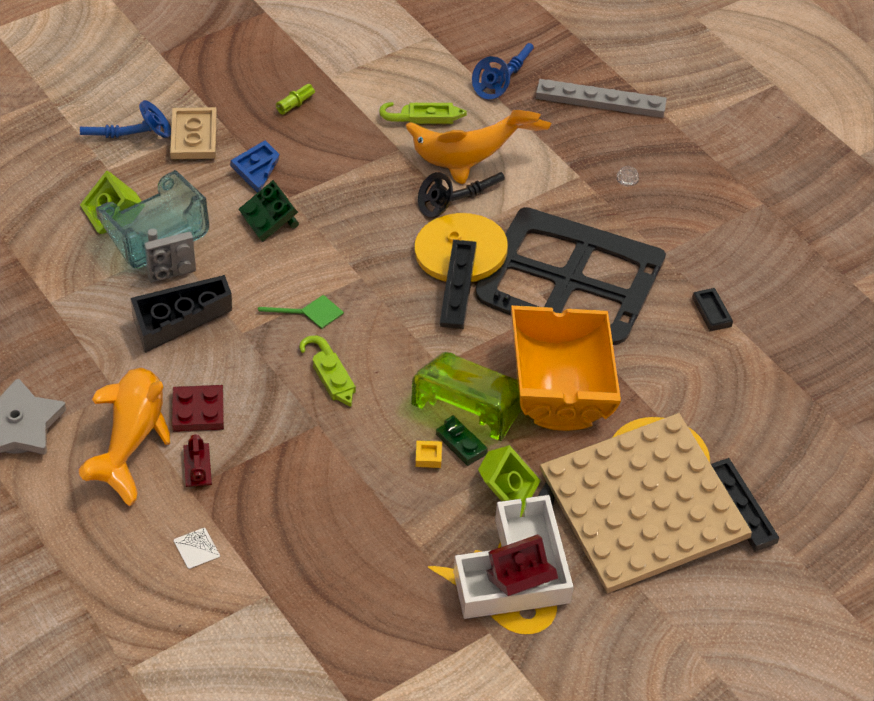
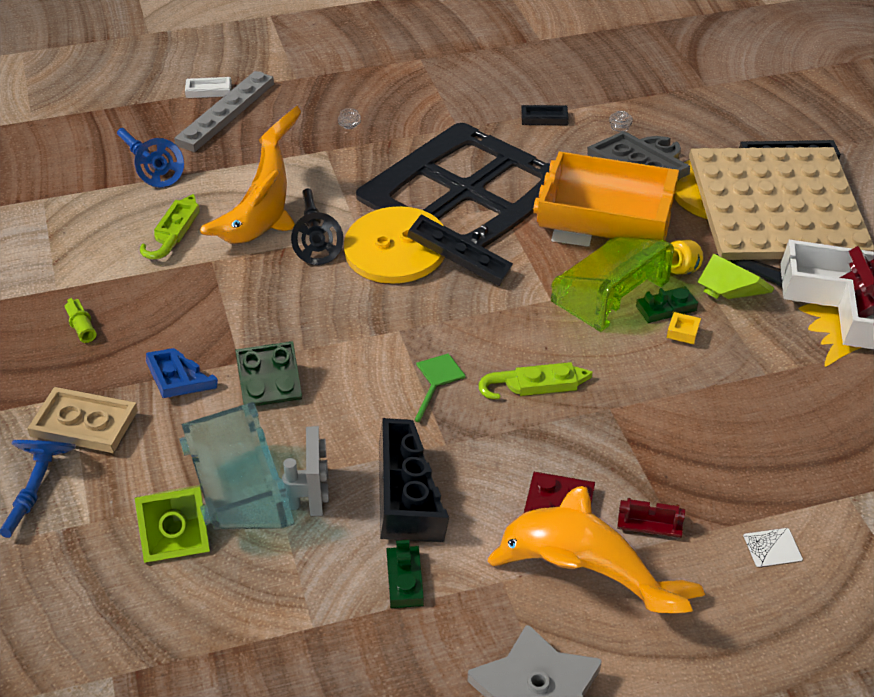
camera: 70 degrees left, 5 degrees down
(103, 336) = (404, 575): none -> dark green plate
(520, 436) = (686, 257): none -> yellow head
(629, 77) = (208, 87): none -> white tile
(664, 387) = (646, 151): none -> dark grey plate
(731, 366) = (620, 121): none -> clear plate

